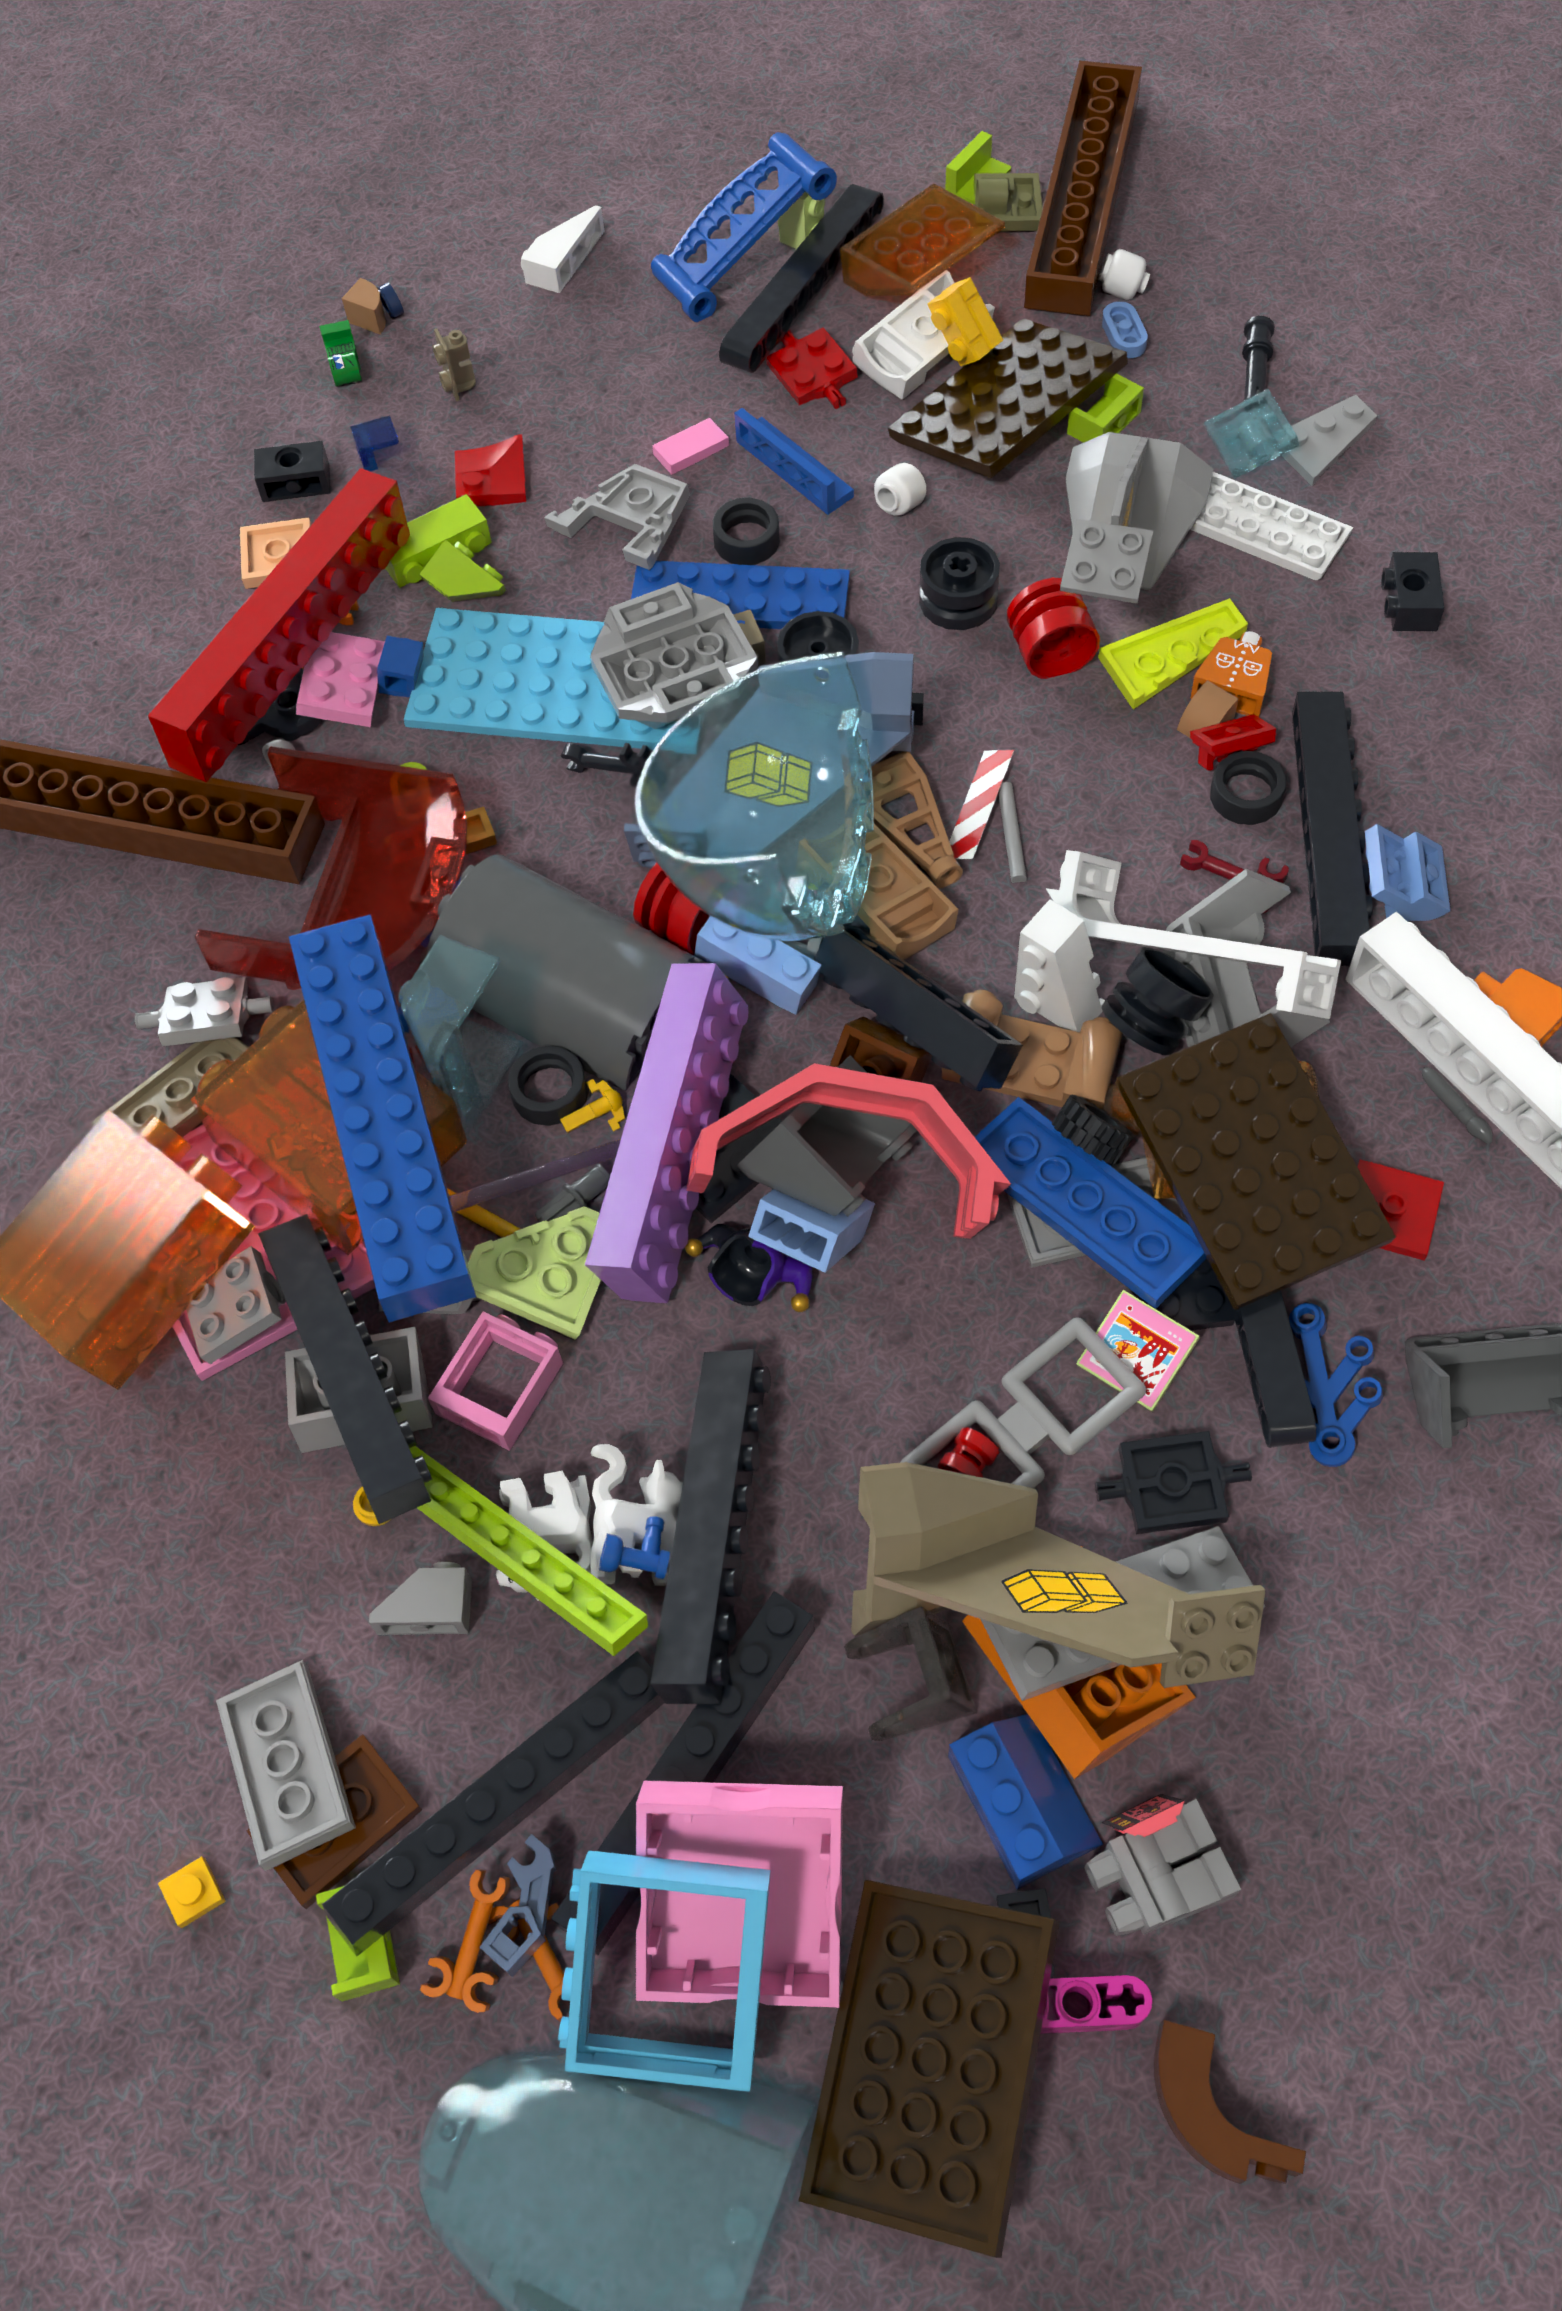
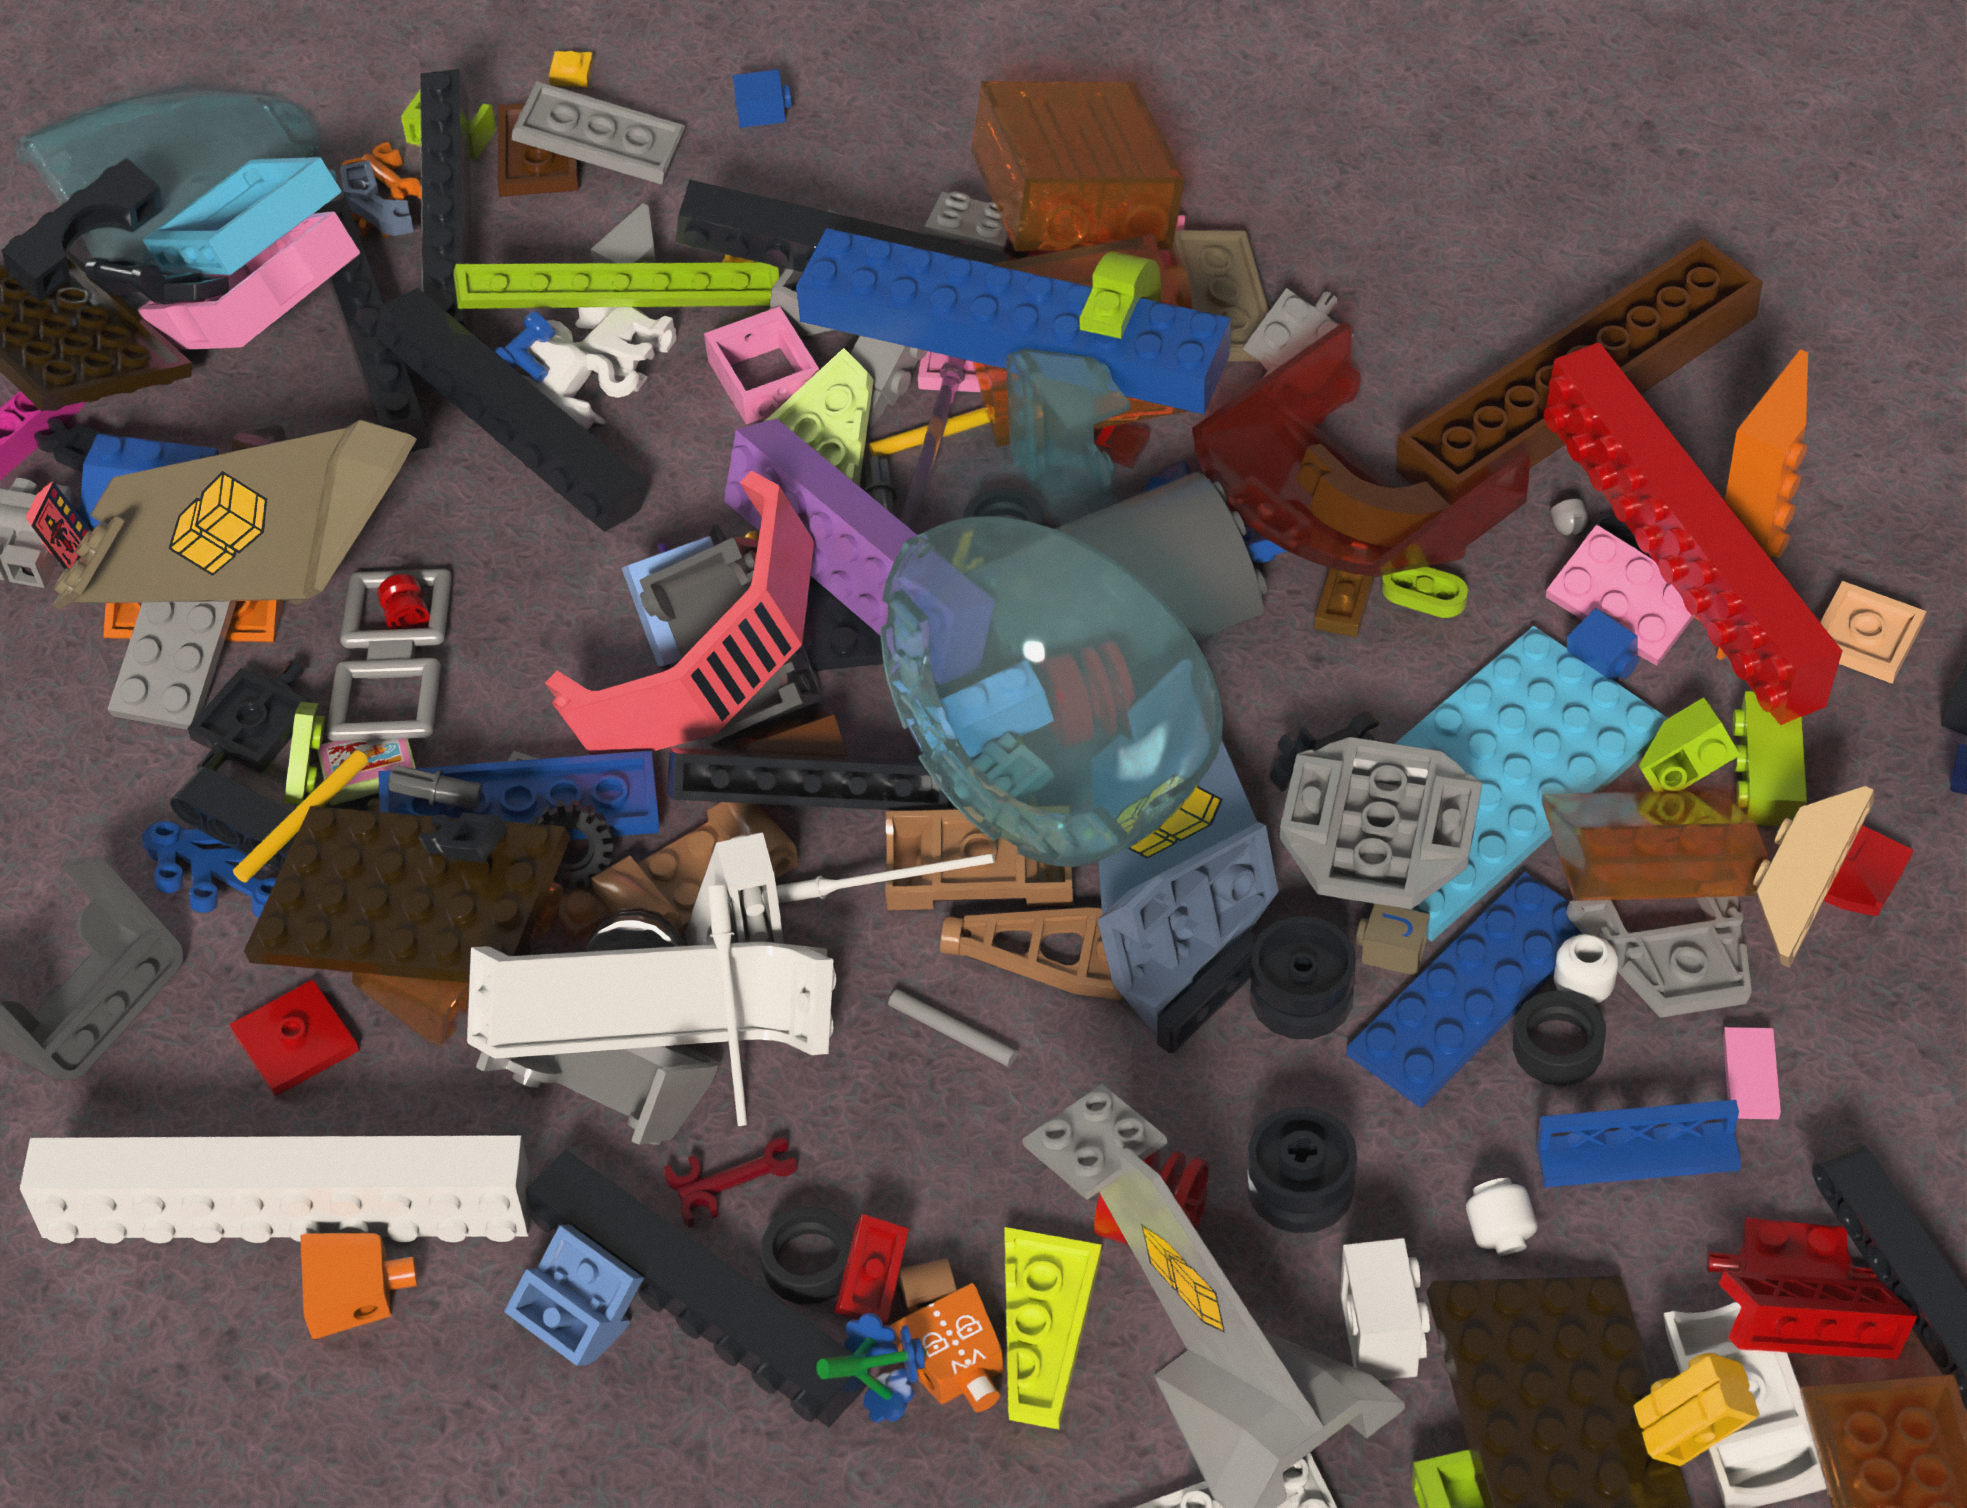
camera: 125 degrees right, 10 degrees down
(140, 1648) = (761, 98): none -> blue brick
(166, 606) = (1768, 457): none -> orange slope
(307, 1011) = (1116, 289): none -> lime arch
(388, 839) = (1361, 508): none -> reddish brown arch
(533, 446) = (1806, 866): none -> tan wedge
(559, 548) = (1654, 844): none -> clear orange slope
(687, 536) = (1586, 967): none -> white head
(836, 2041) = (127, 276): none -> black bar
(854, 308) = (1817, 1315): none -> red fence
(868, 2141) = (117, 199): none -> black arch
(976, 968) = (821, 886): none -> white piece
(979, 803) = (1011, 1022): sticker -> none
(1024, 488) = (1382, 1309): none -> white brick
(1111, 918) = (722, 937): none -> white piece
(1140, 1233) = (435, 787): none -> dark grey axle
(1174, 1384) = (306, 735): none -> lime plate
(1194, 1112) = (467, 839): none -> black plate
(1247, 1312) = (291, 824): none -> yellow bar
(1285, 690) = (872, 1348): none -> blue plant

